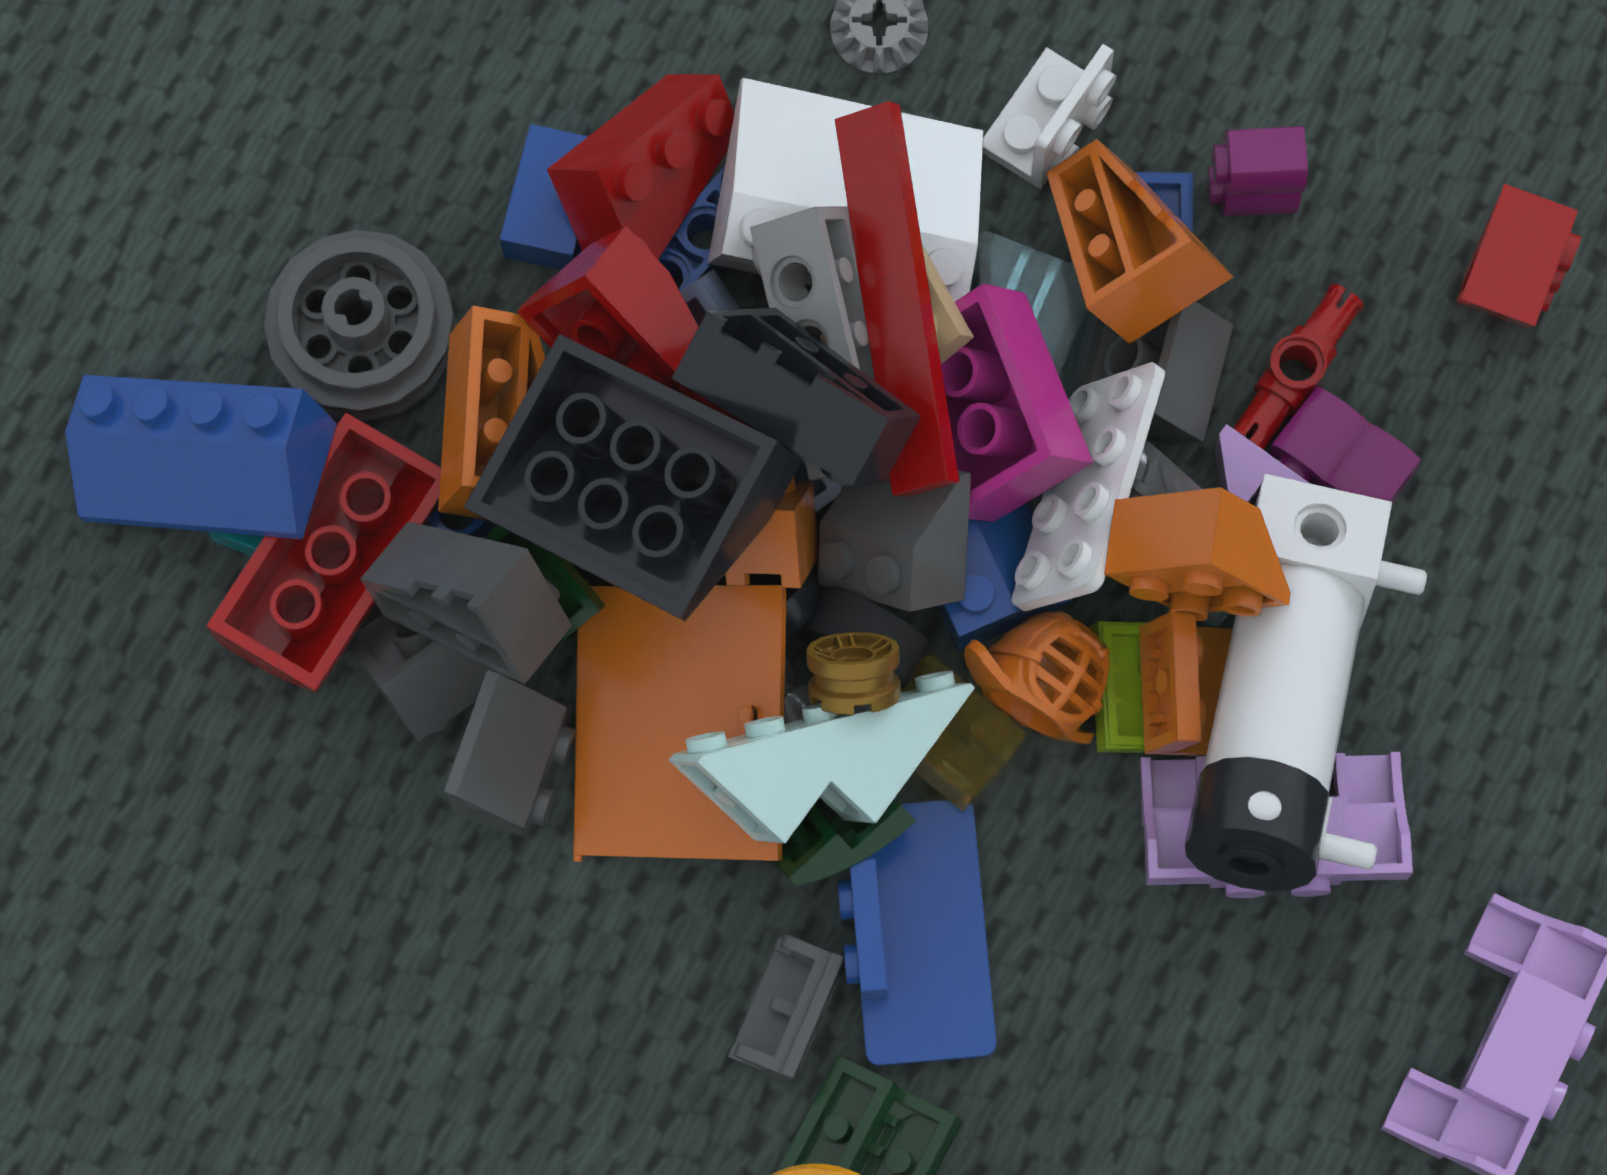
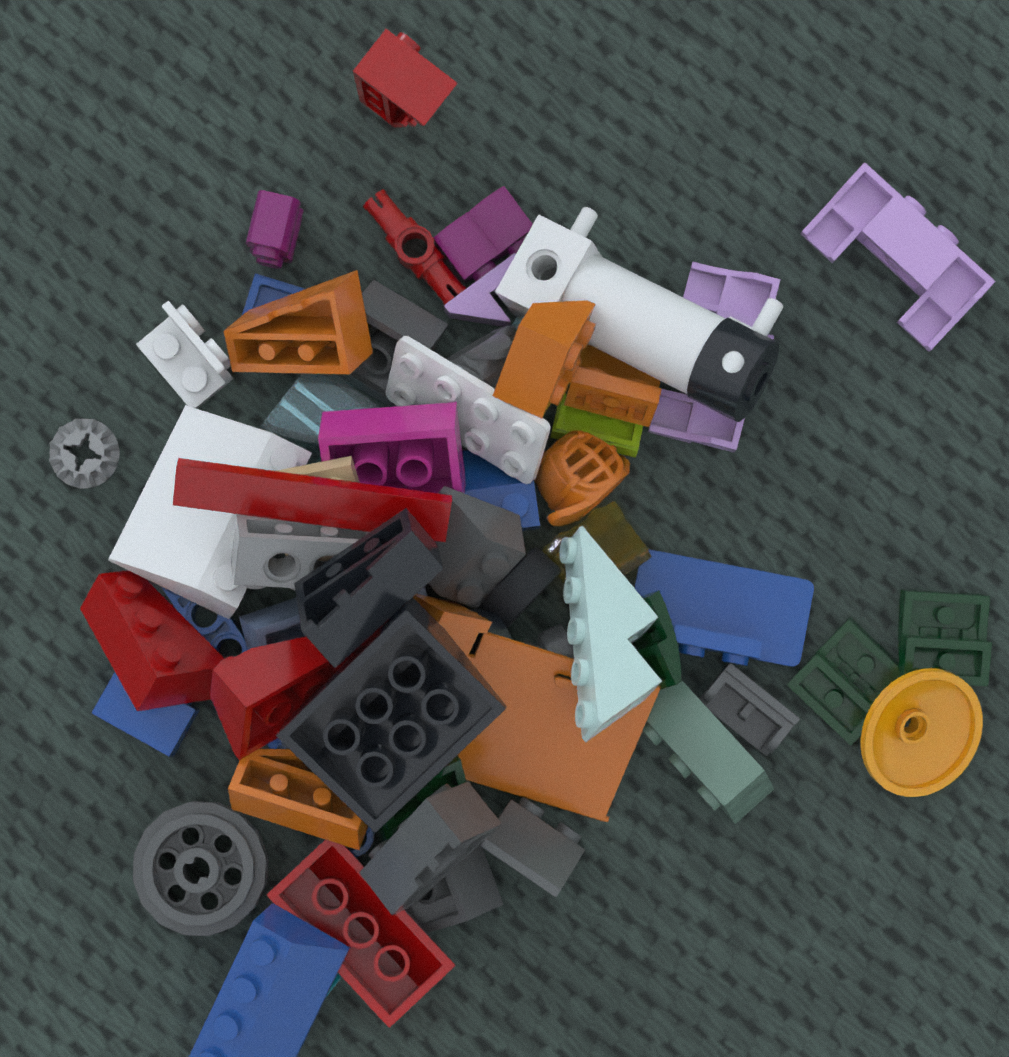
camera: 80 degrees left, 10 degrees up
(707, 961) = (707, 752): none -> sand green wedge
(853, 672) = (556, 602): pearl gold wheel -> none

